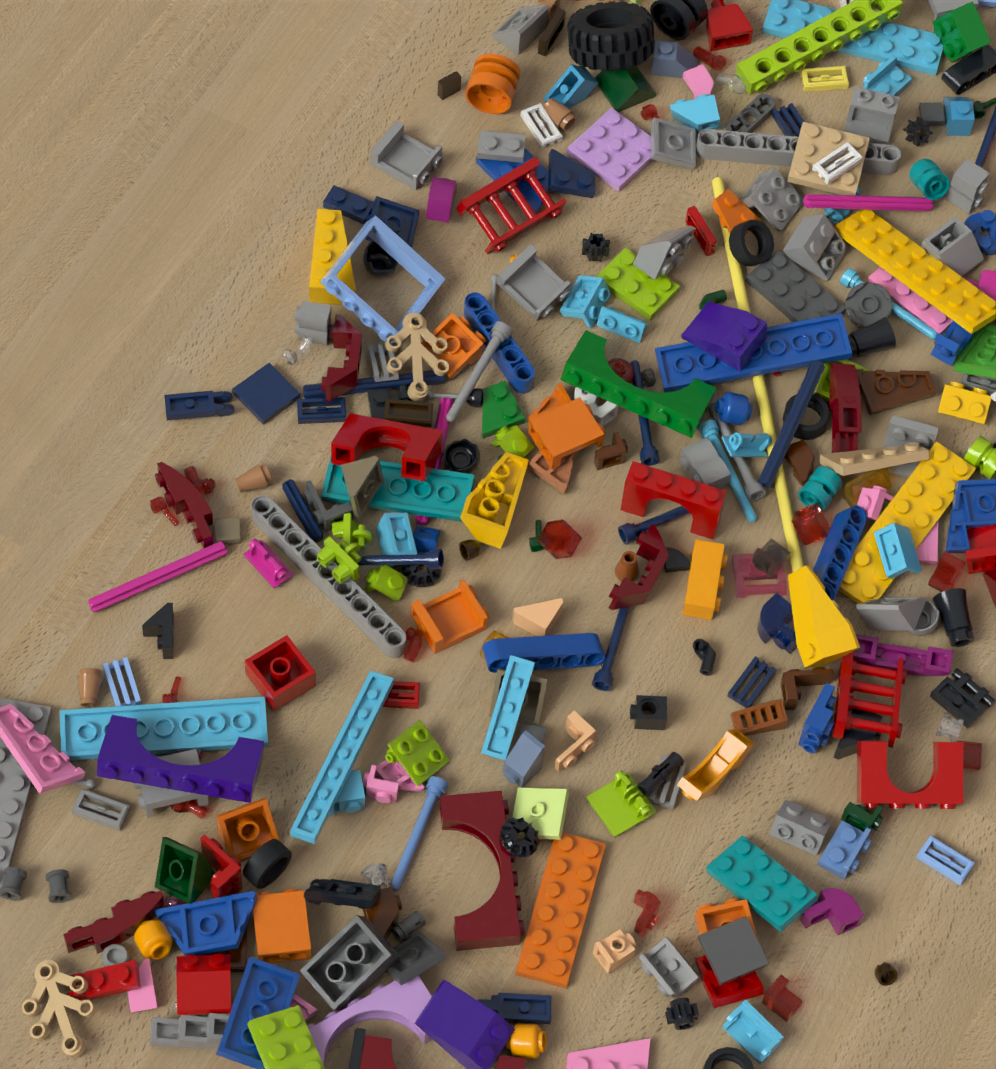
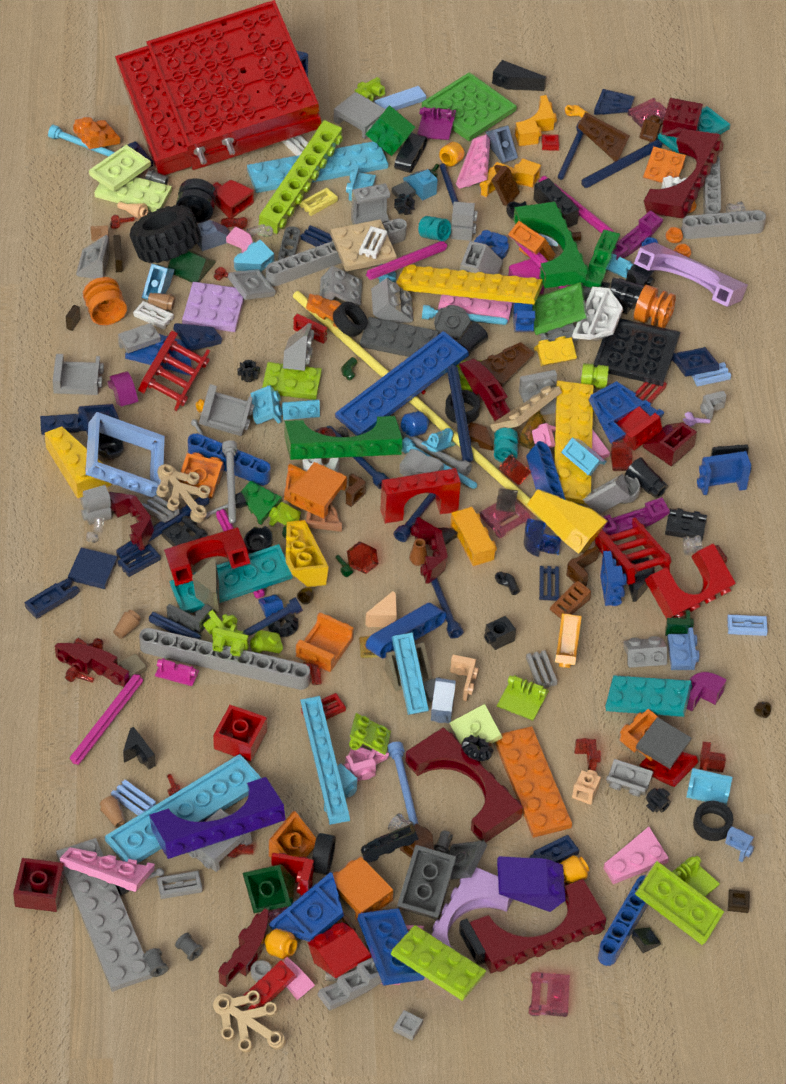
camera: 30 degrees left, 10 degrees down
(395, 535) = (250, 609): medium azure panel -> none
(409, 412) = (202, 529): dark brown tile -> none
(660, 774) = (538, 656): black pin -> none
(727, 334) = (378, 378): dark purple slope -> none

